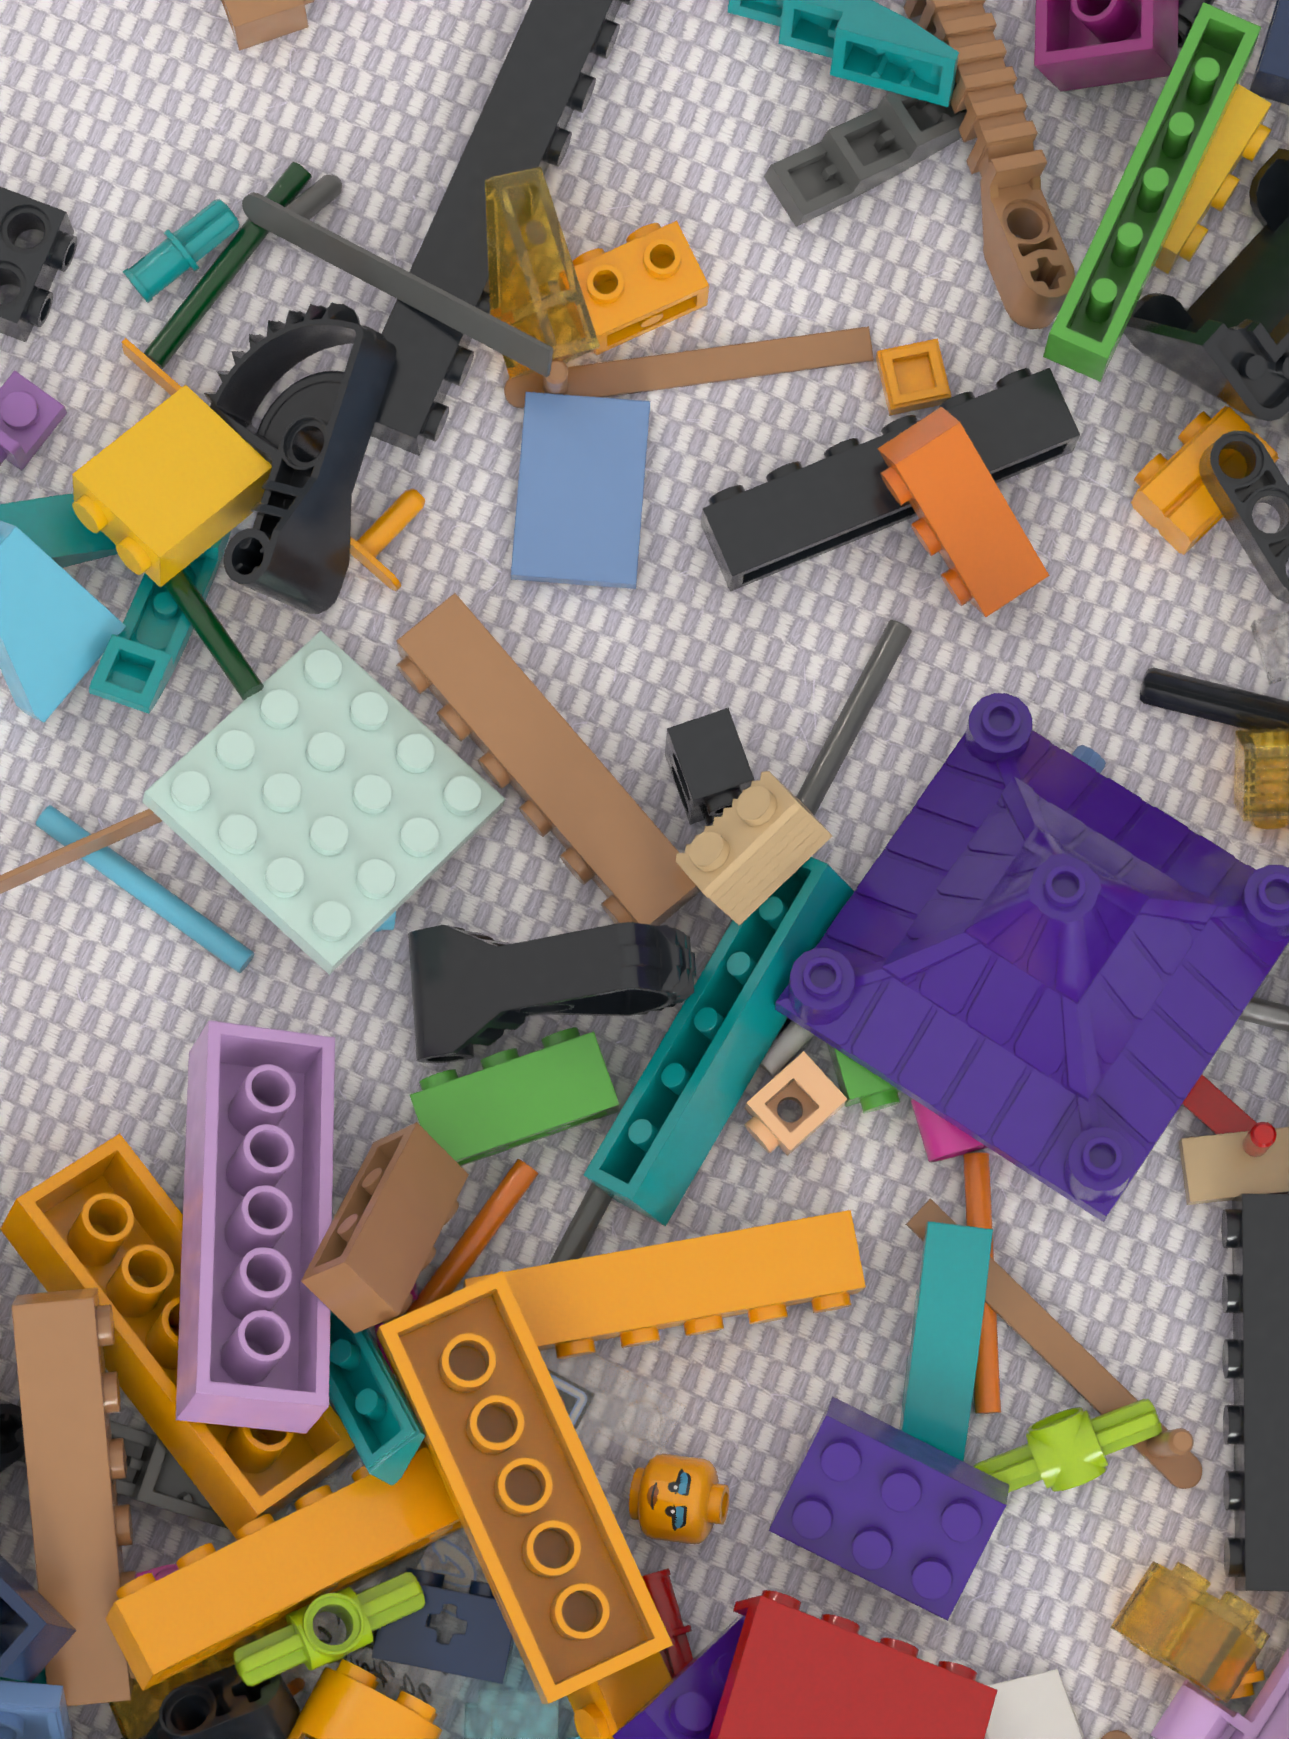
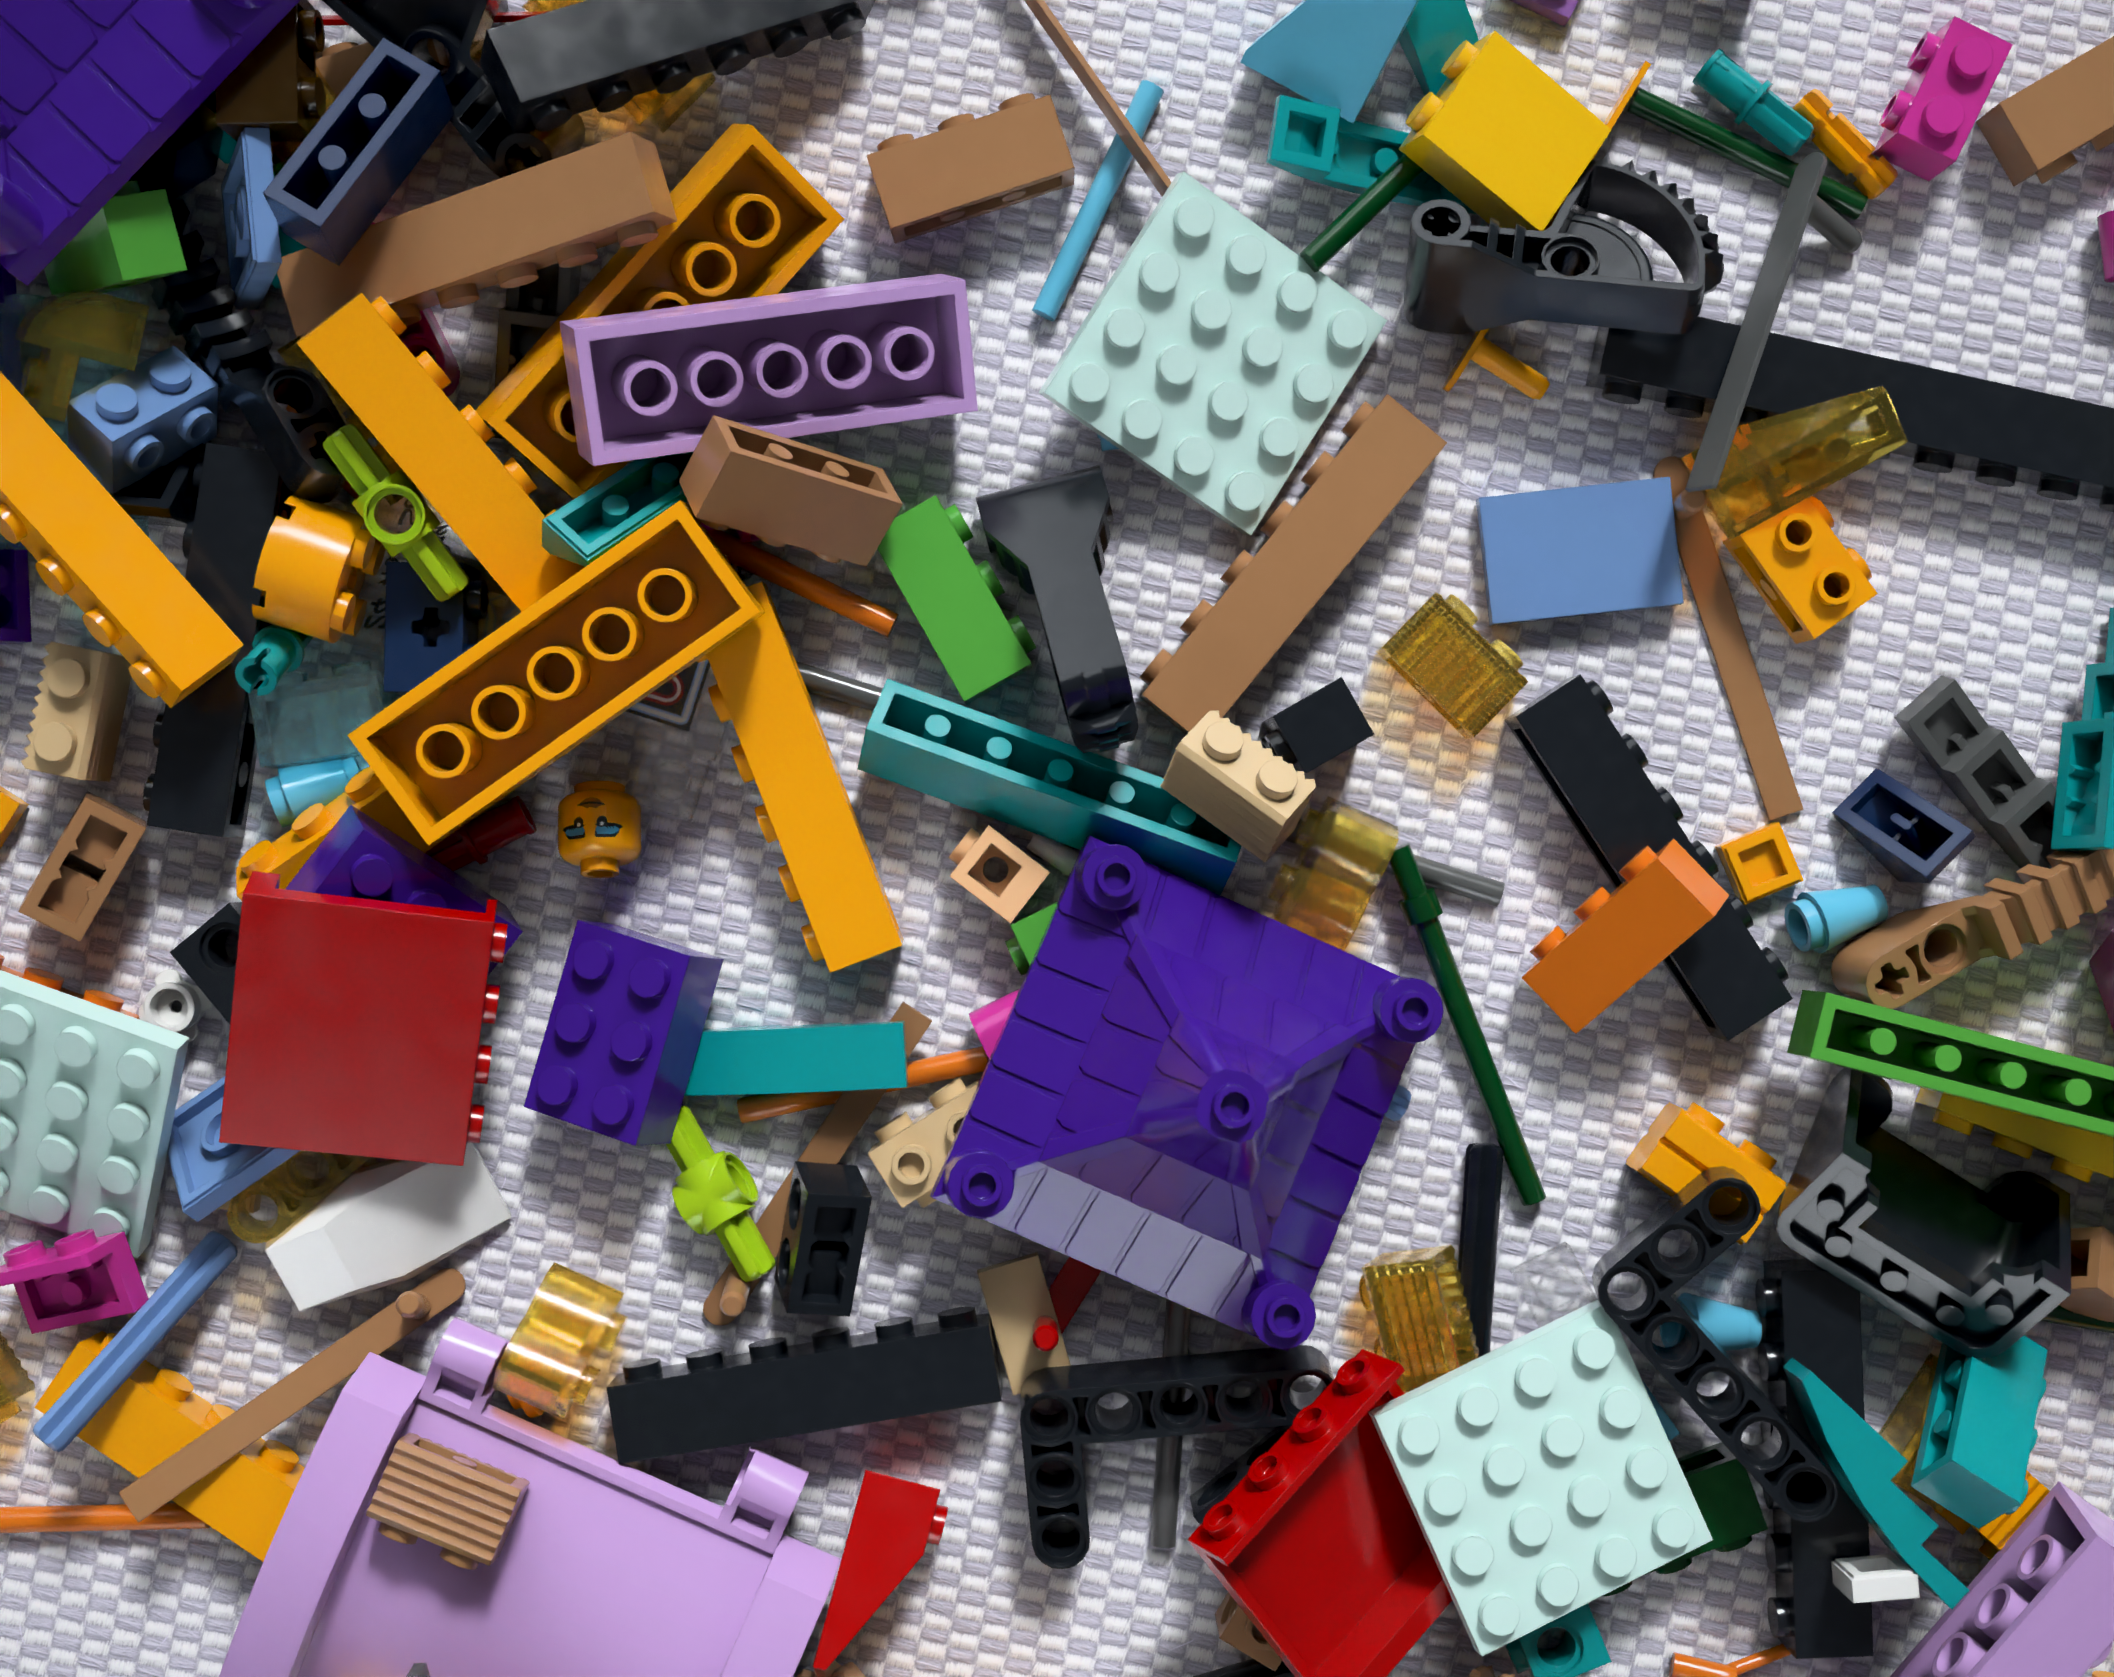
camera: 80 degrees right, 10 degrees up
(87, 1005) = (971, 166): none -> medium nougat brick
(215, 78) = (1941, 99): none -> dark pink brick
(239, 173) = (1846, 145): none -> light orange axle
(668, 628) = (1454, 664): none -> clear yellow brick
(852, 777) = (1334, 873): none -> clear yellow brick
(902, 701) = (1421, 909): none -> dark green bar
(904, 238) = (1902, 828): none -> dark blue slope
(977, 317) = (1832, 916): none -> medium azure cone
(1057, 1233) = (915, 1150): none -> tan brick
(1130, 1344) = (822, 1239): none -> black brick

